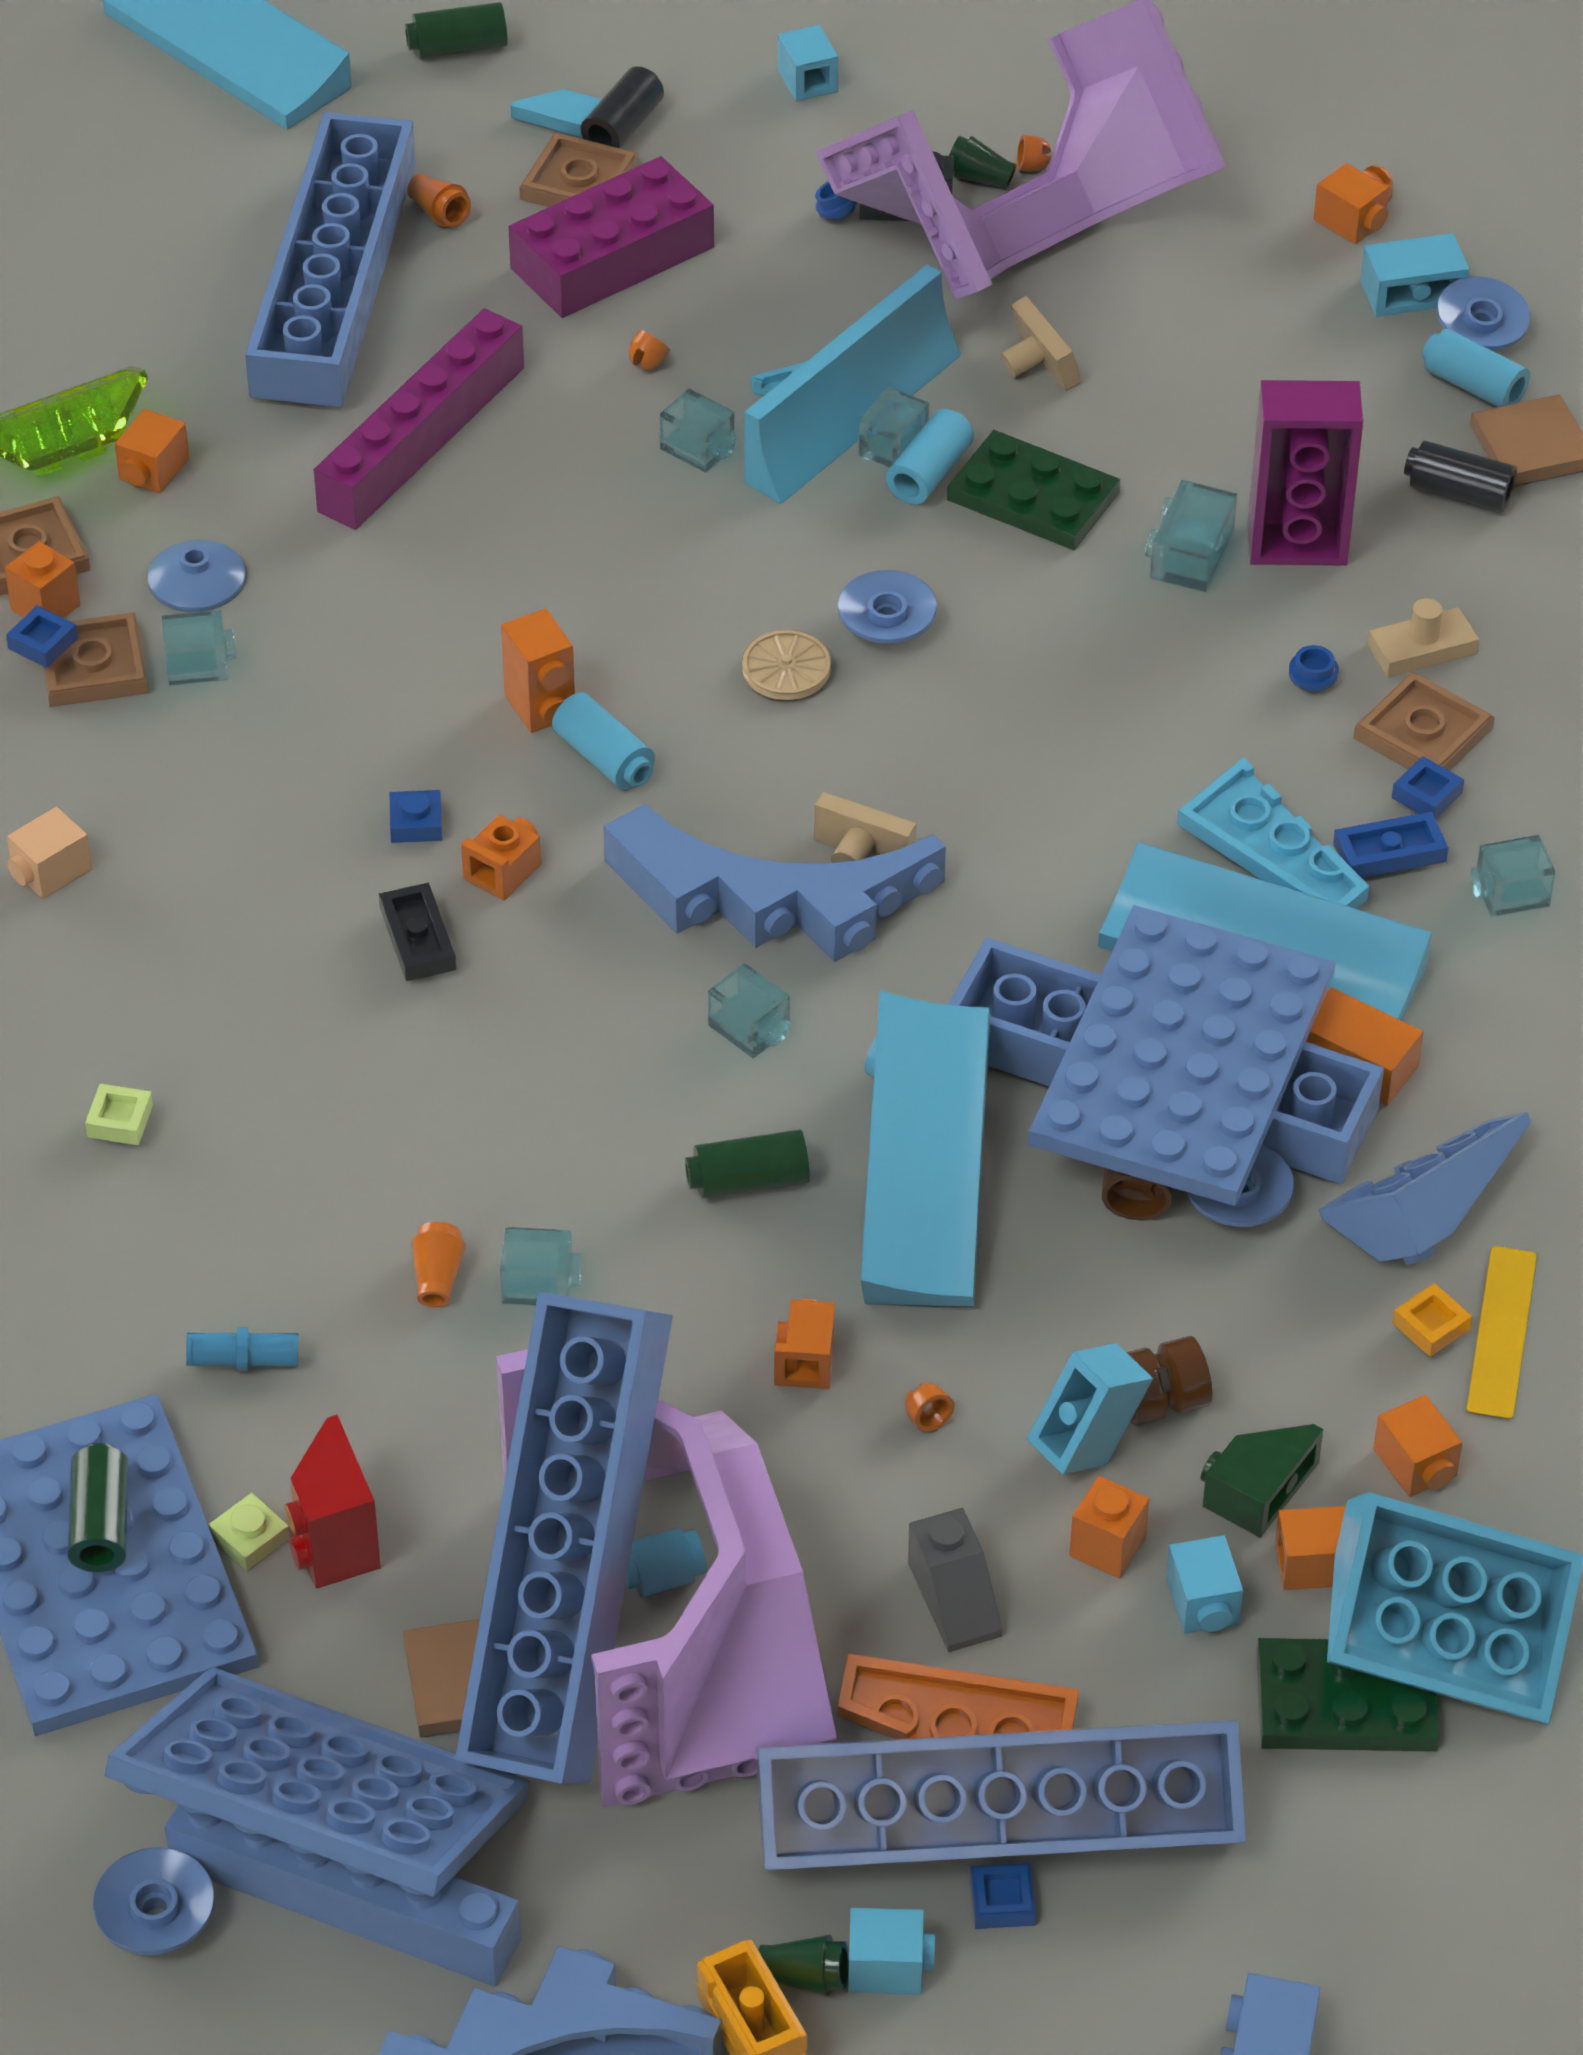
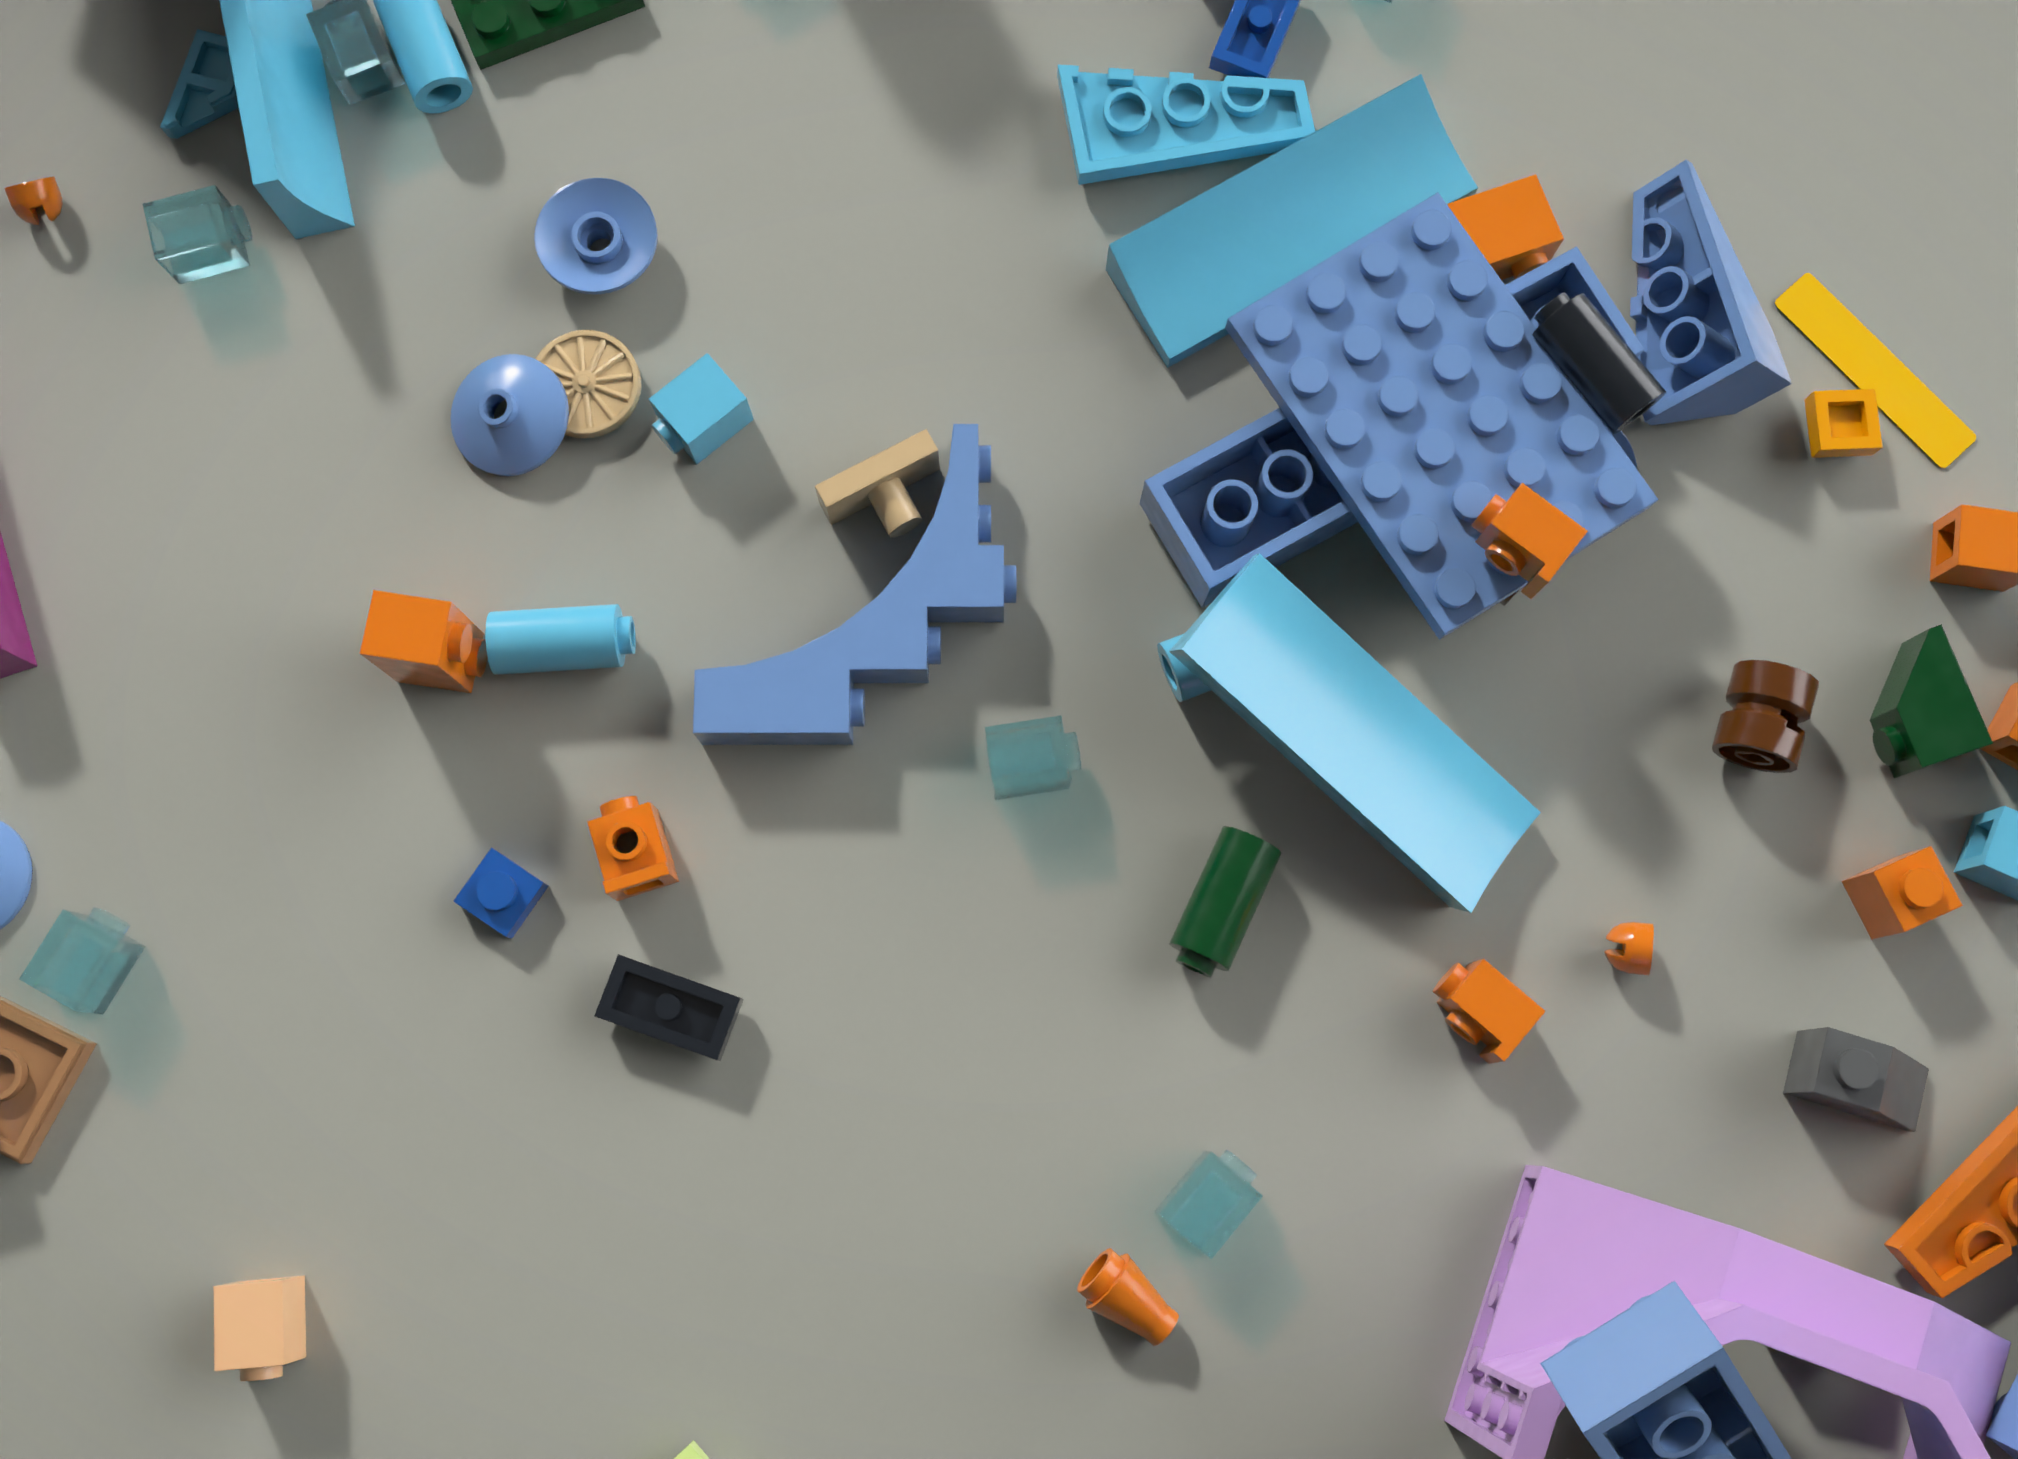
camera: 55 degrees left, 30 degrees up
(729, 640) = (528, 429): none -> medium blue dish
(822, 721) = (699, 410): none -> medium azure brick
(1089, 1408) = (1788, 818): medium azure brick -> none
(1123, 1114) = (1527, 537): none -> orange brick
(1299, 1106) = (1596, 360): none -> black brick

